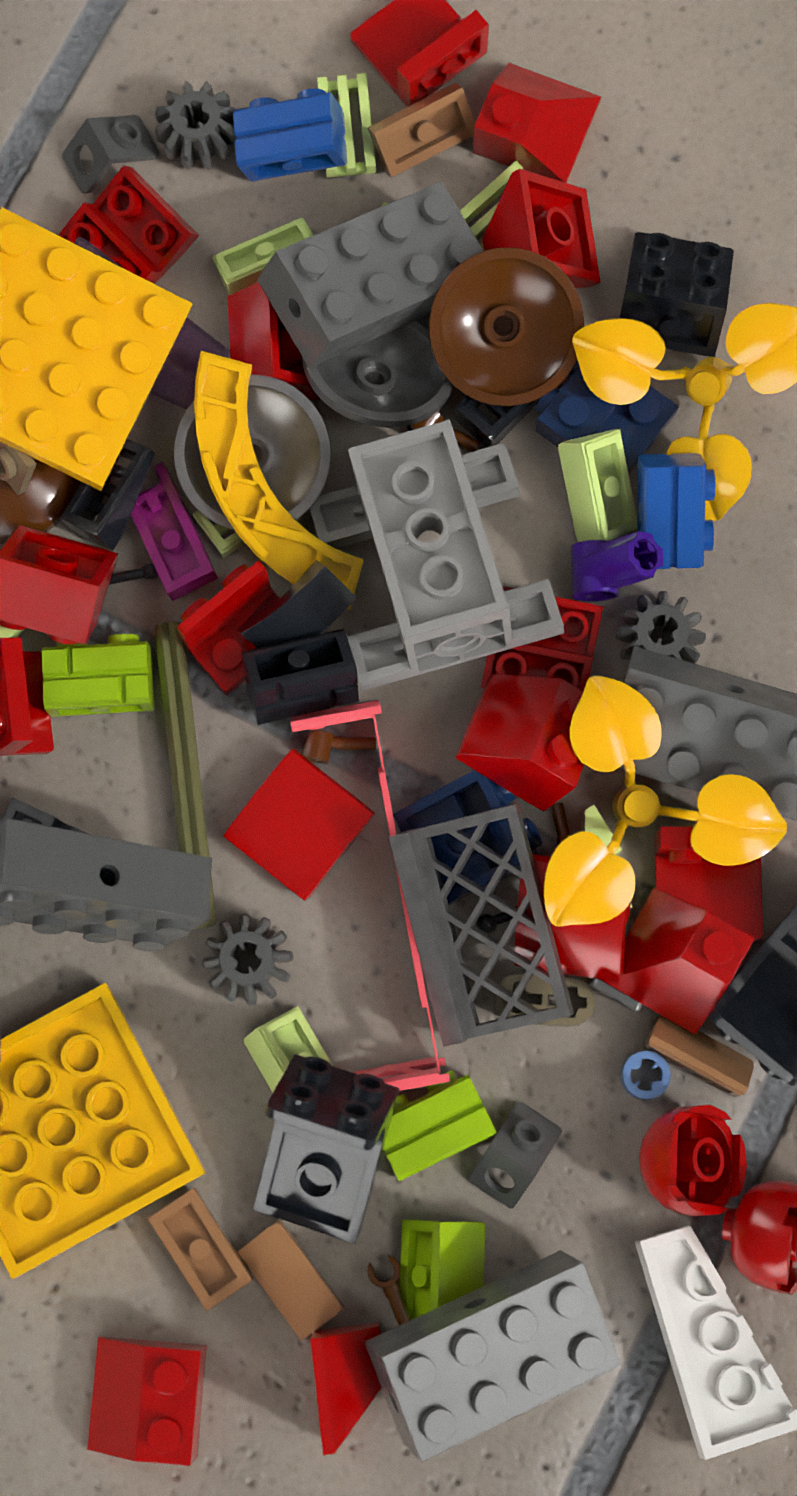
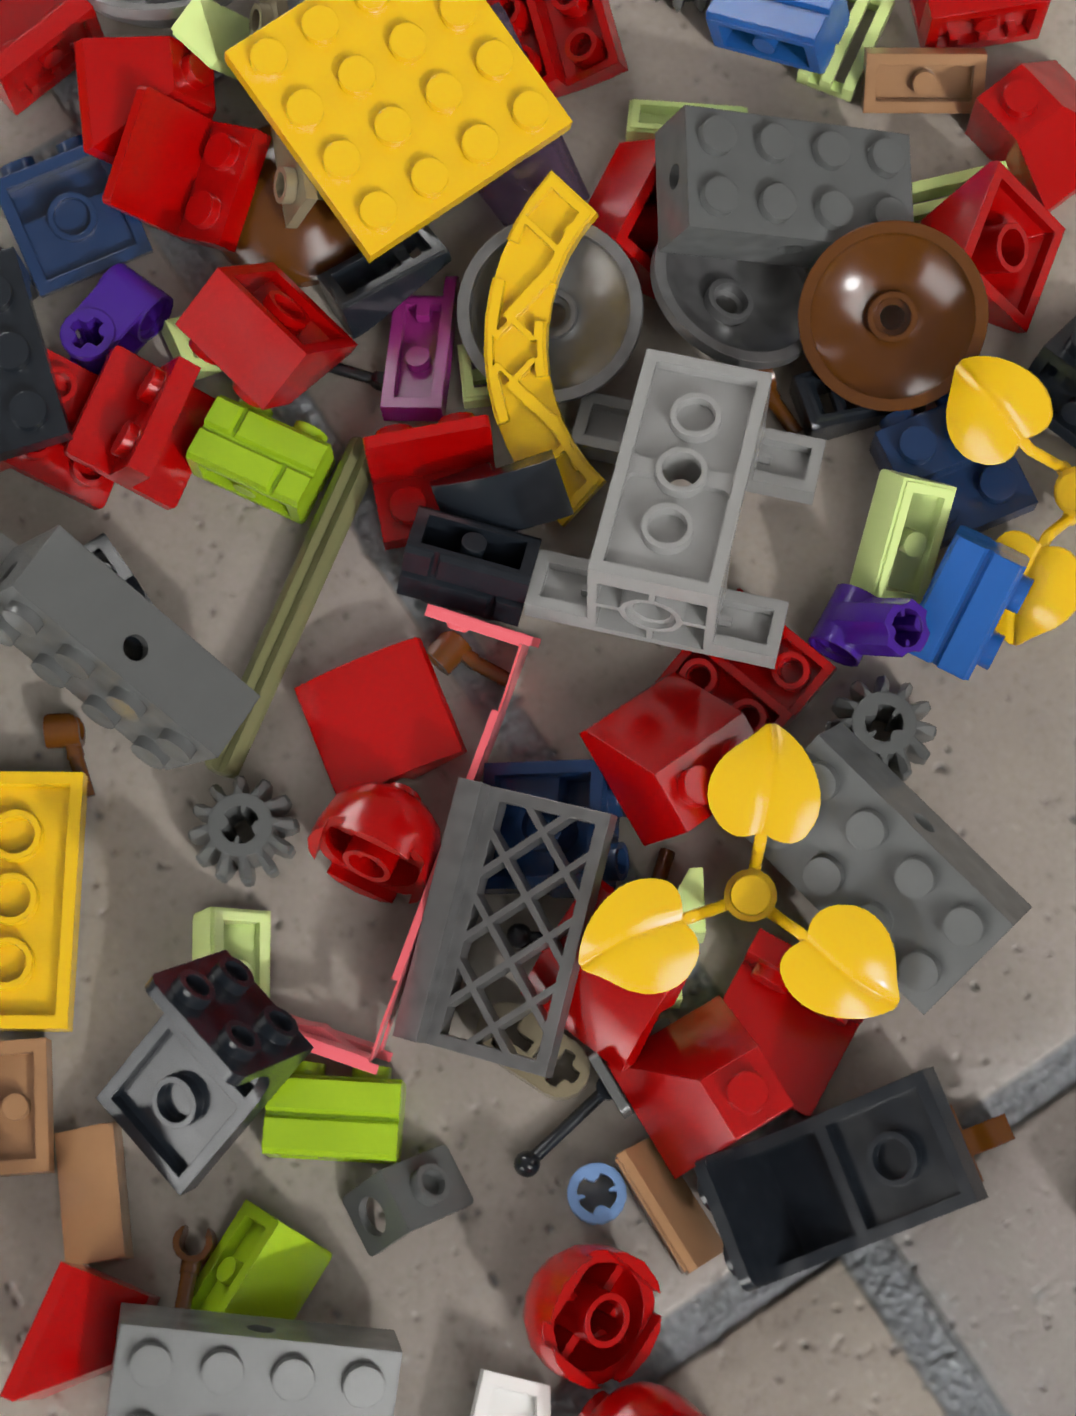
camera: 30 degrees right, 5 degrees down
(72, 960) = (68, 732): none -> reddish brown hand
(351, 912) = (378, 840): none -> red cylinder
(584, 1080) = (528, 1162): none -> black hinge

